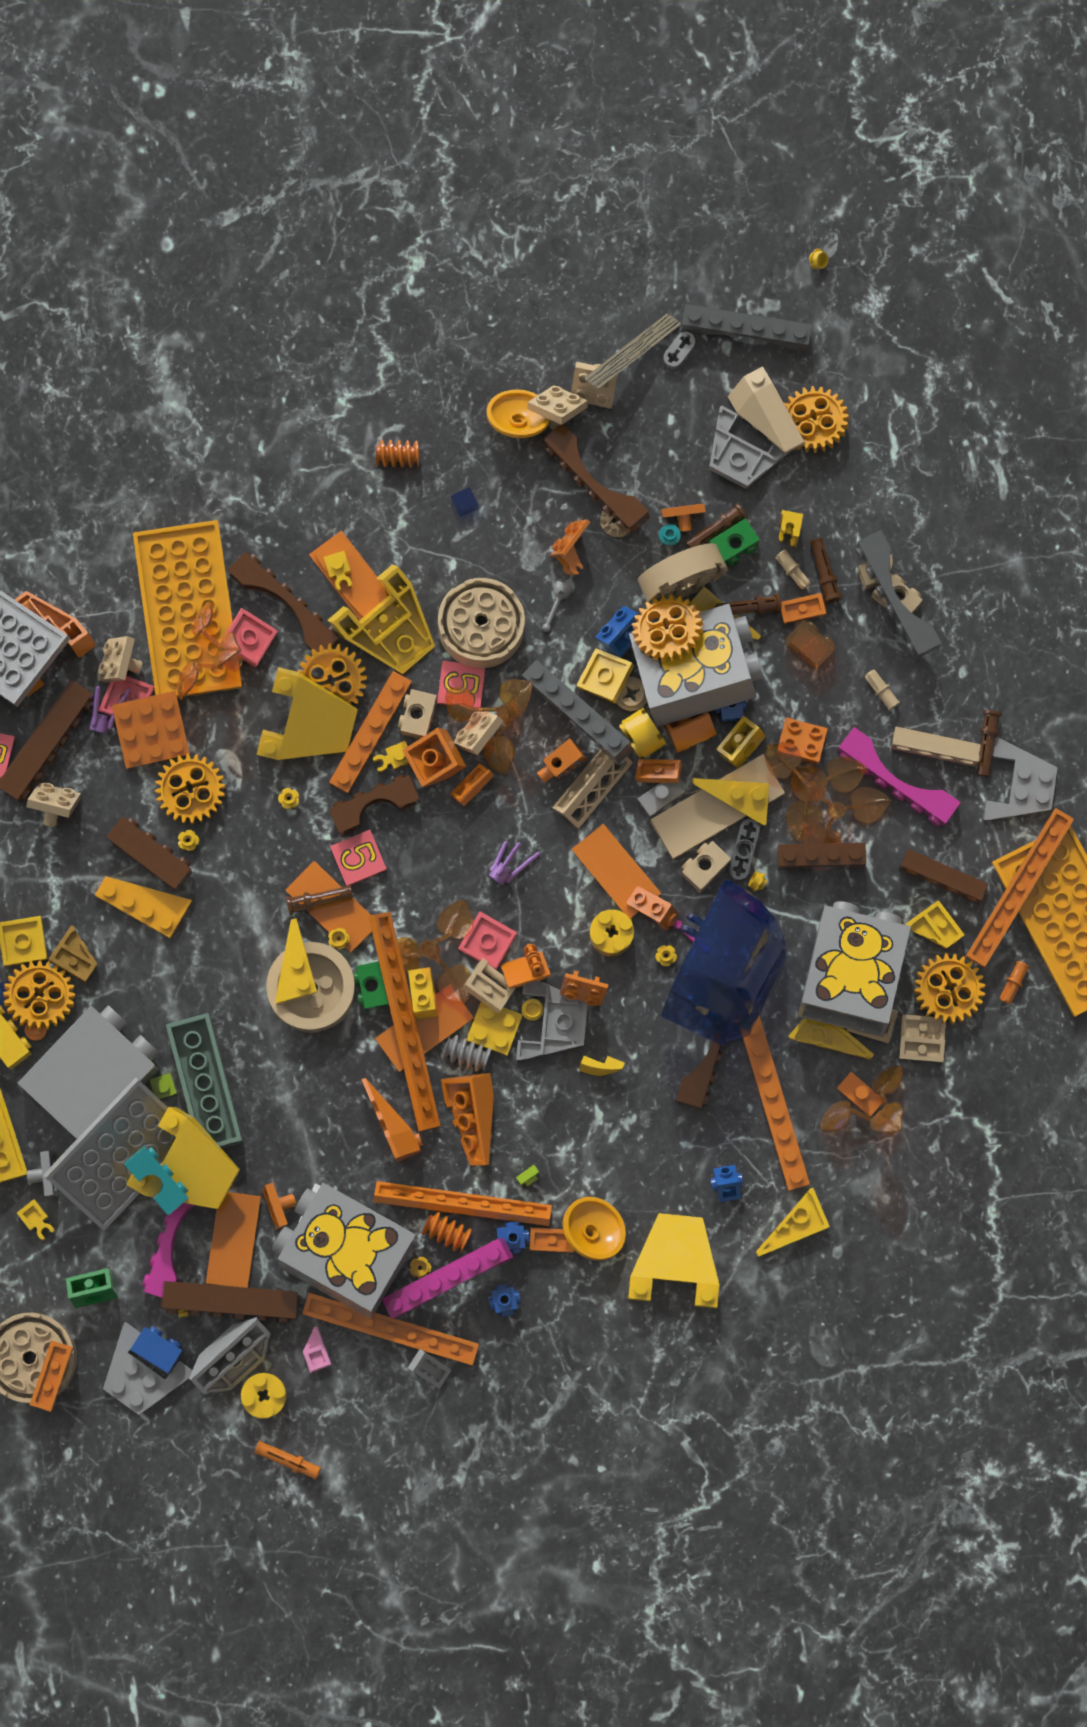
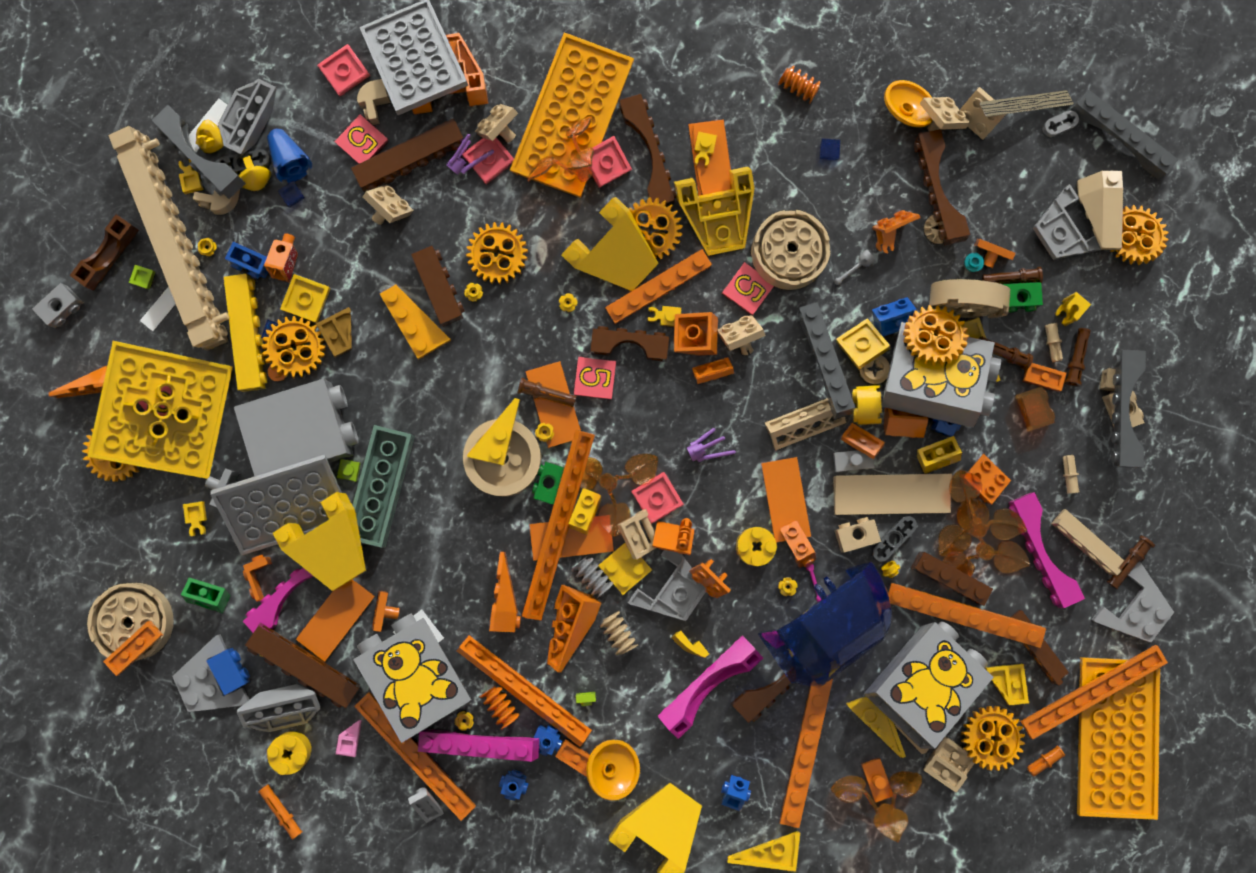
camera: 25 degrees right, 5 degrees up
(125, 1228) = (249, 574): none -> orange bracket
(145, 1163) = (293, 527): teal arch -> none
(150, 729) = (492, 190): orange plate -> none
(417, 701) = (710, 285): tan brick -> none
(515, 696) = (785, 323): clear orange plant -> none
(524, 1095) = (617, 633): none -> tan piece
(532, 1009) = (661, 570): yellow plate -> none
(571, 758) = (801, 391): orange torso -> none
(630, 1135) = (681, 712): none -> dark pink arch
(744, 796) = (919, 499): yellow wing -> none
(818, 259) = (1209, 112): yellow plate -> none
(853, 883) = (966, 615): none -> orange plate

